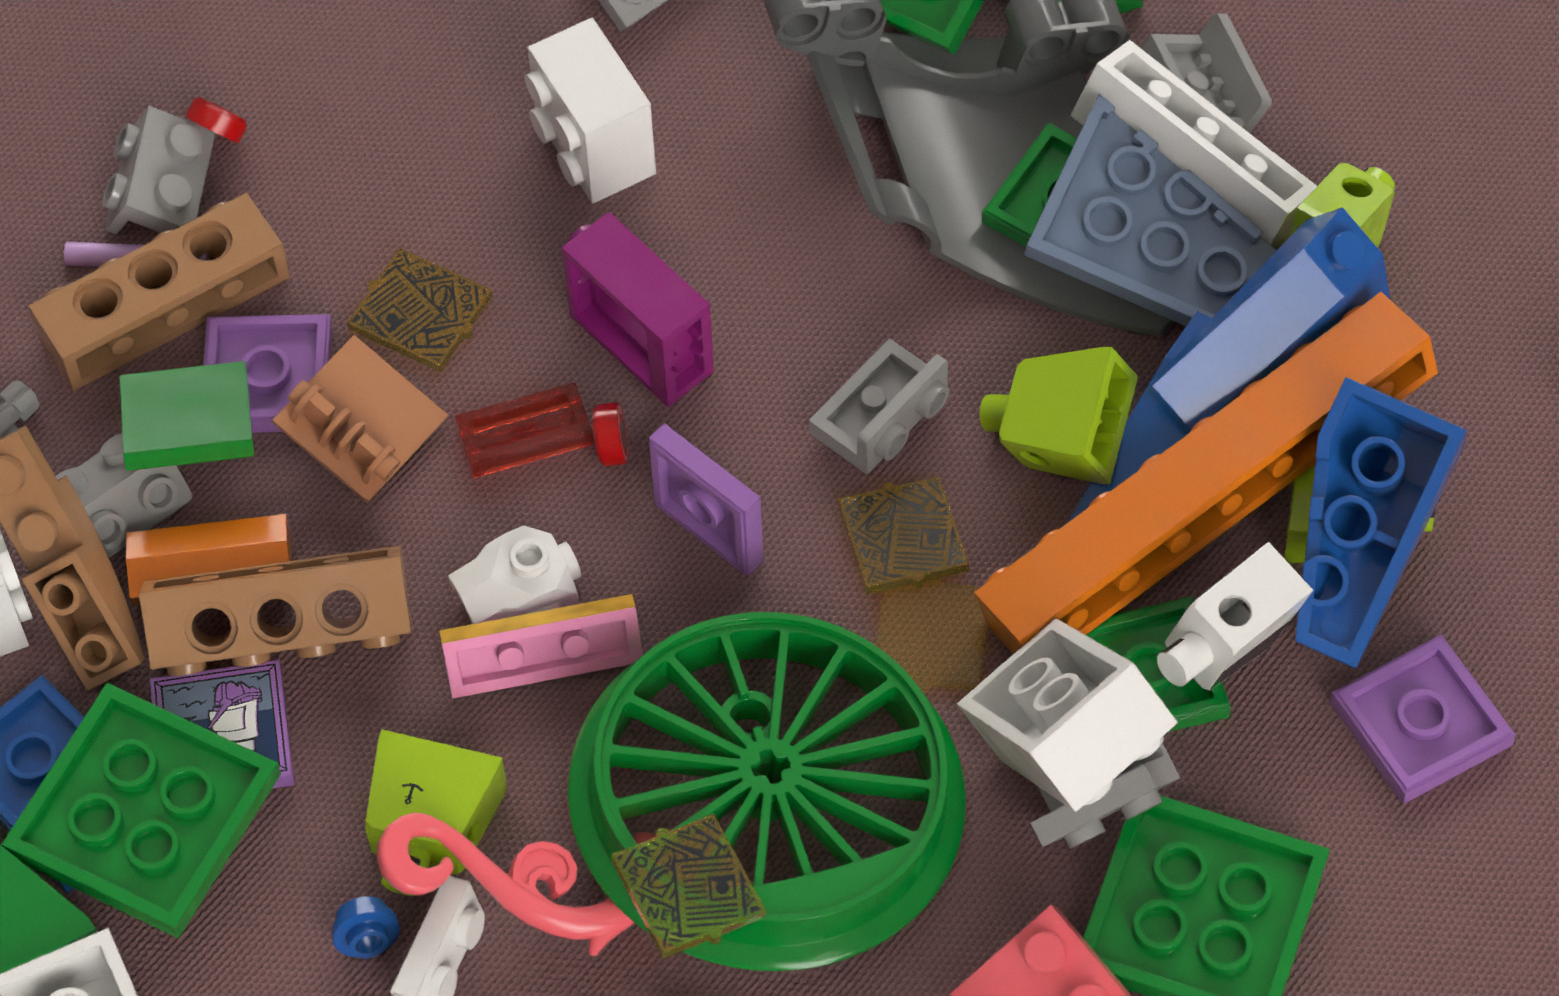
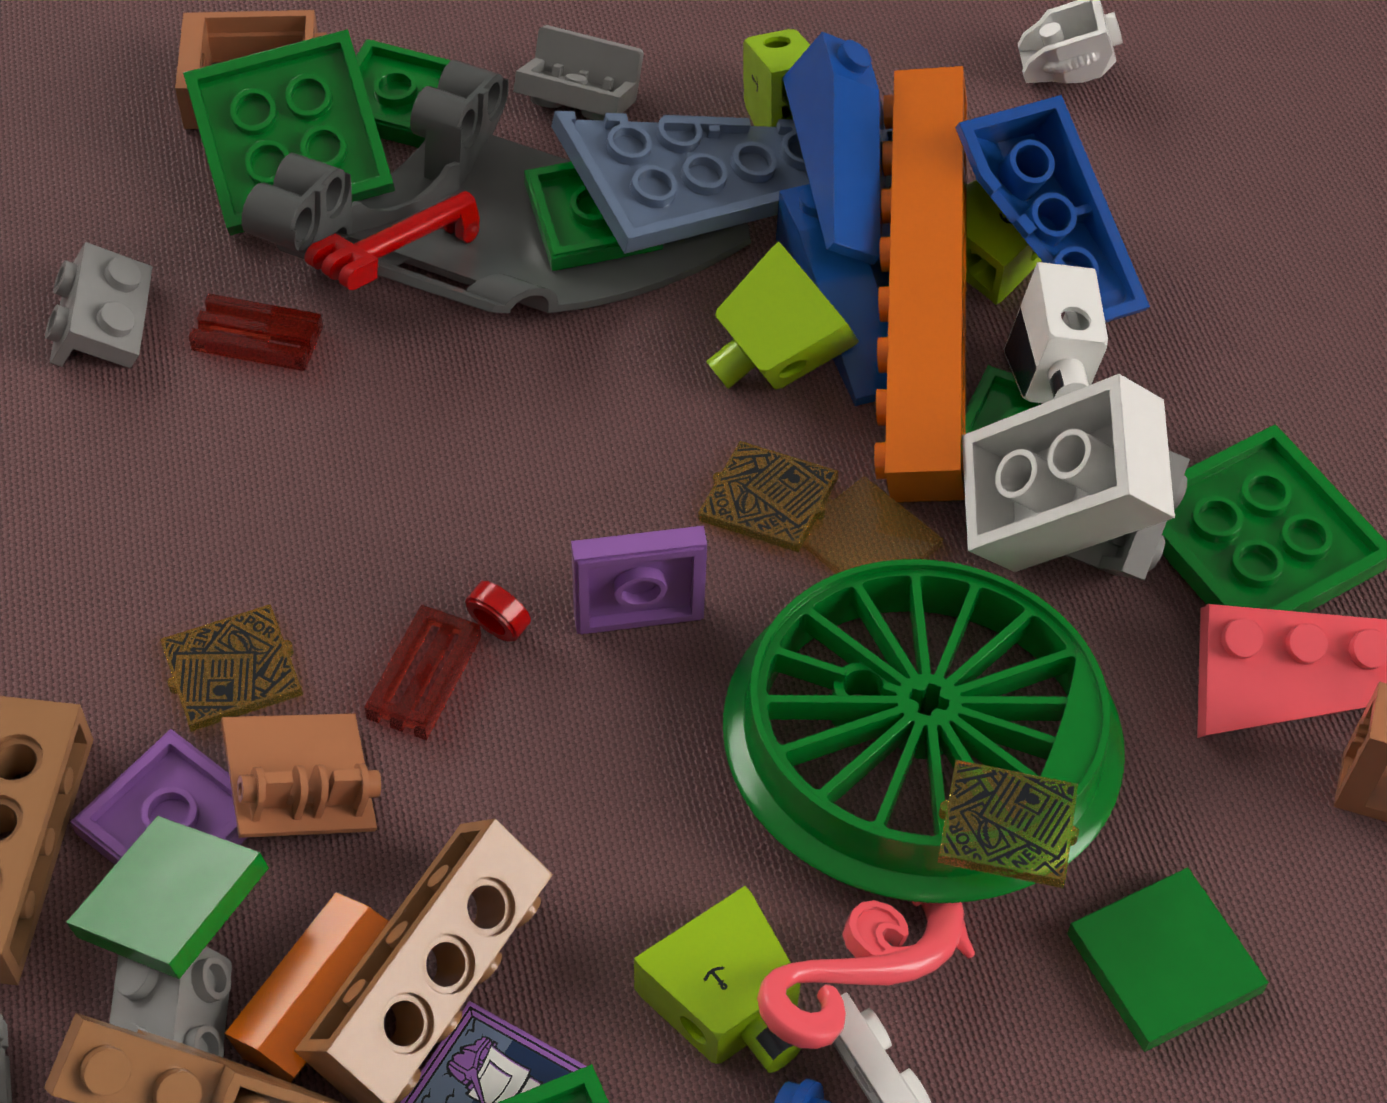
camera: 55 degrees left, 5 degrees down
(517, 576) = (570, 766): white hand -> none
(541, 646) = (648, 793): bright pink plate -> none
(590, 111) = (202, 412): white brick -> none
(638, 308) = (414, 537): magenta window -> none
(707, 46) = (259, 324): none -> clear red tile
(805, 82) = (358, 262): none -> red hinge
(881, 405) = (652, 428): light grey bracket -> none
(1199, 139) = (638, 92): white brick -> none
(1422, 719) = (1198, 315): medium lavender tile -> none

